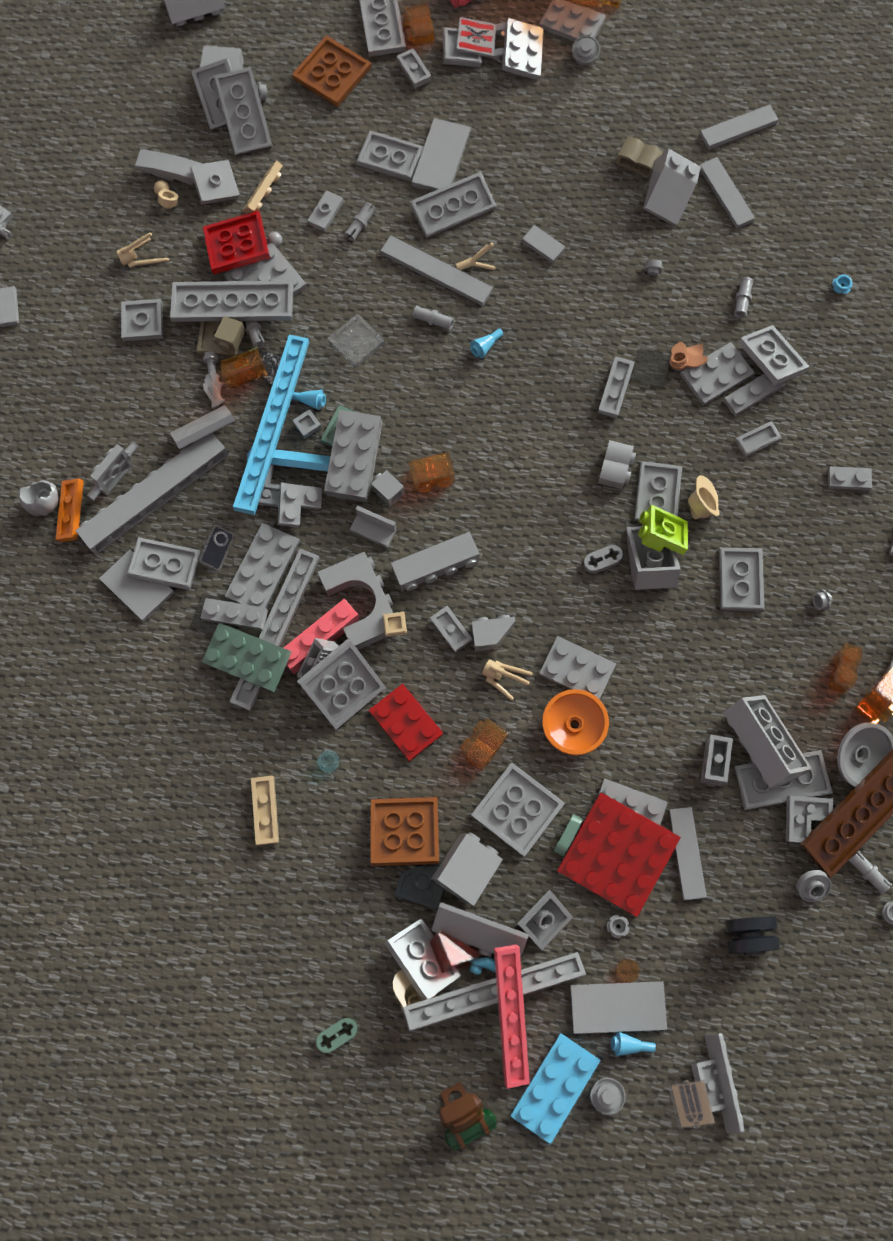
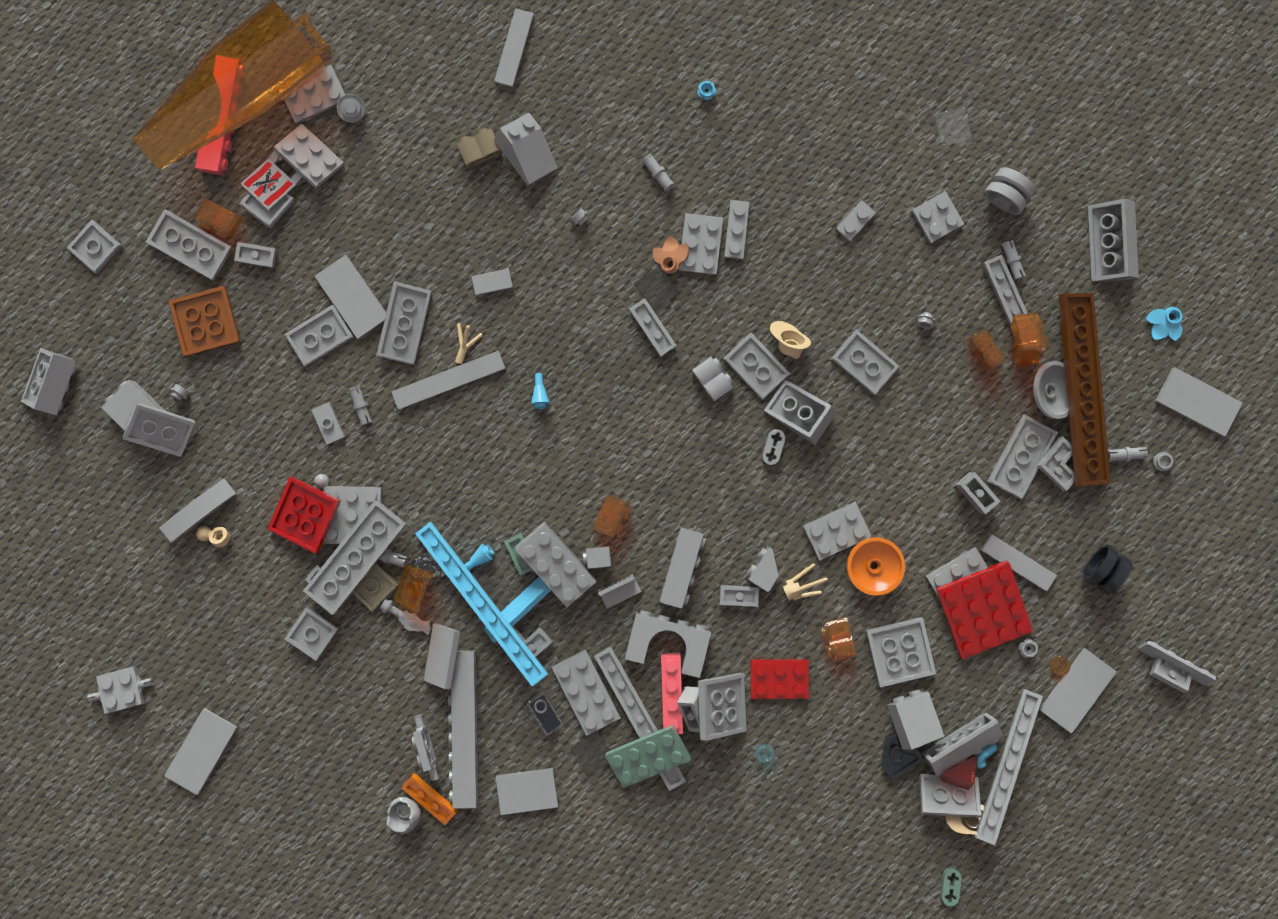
camera: 55 degrees left, 15 degrees up
(128, 254) = (245, 603): tan plant -> none
(163, 563) = (527, 761): light grey tile -> none
(214, 182) = (234, 490): light grey plate -> none
(229, 334) = (381, 580): dark tan brick -> none
(234, 614) = (607, 739): light grey plate -> none
(243, 111) = (190, 422): light grey tile -> none
(263, 188) = (270, 457): tan plate -> none
(265, 810) = (765, 823): tan plate -> none
(292, 499) = (552, 634): light grey plate -> none
(306, 424) = (499, 575): light grey plate -> none
(356, 340) = (459, 487): clear plate -> none
(395, 624) = (708, 635): tan tile -> none
(404, 831) = (856, 741): dark orange plate -> none
(433, 317) = (487, 415): light grey pin -> none
(464, 1118) = (1070, 846): reddish brown piece -> none
(511, 1016) = (1034, 769): coral plate -> none
(545, 920) = (985, 694): light grey slope -> none
(555, 1088) = (1093, 771): medium azure plate -> none
(568, 835) = (945, 632): sand green beam -> none
(607, 1096) = (1125, 743): light grey plate -> none
(624, 1044) = (1105, 705): medium azure cone -> none
(663, 530) = (792, 391): lime plate -> none
(691, 1104) = (1173, 695): clear piece -> none
(727, 193) = (561, 107): light grey tile -> none
(758, 439) = (774, 259): light grey tile -> none
(767, 740) = (992, 447): light grey slope -> none
(773, 355) = (722, 193): light grey plate -> none
(813, 886) = (1106, 499): light grey plate -> none

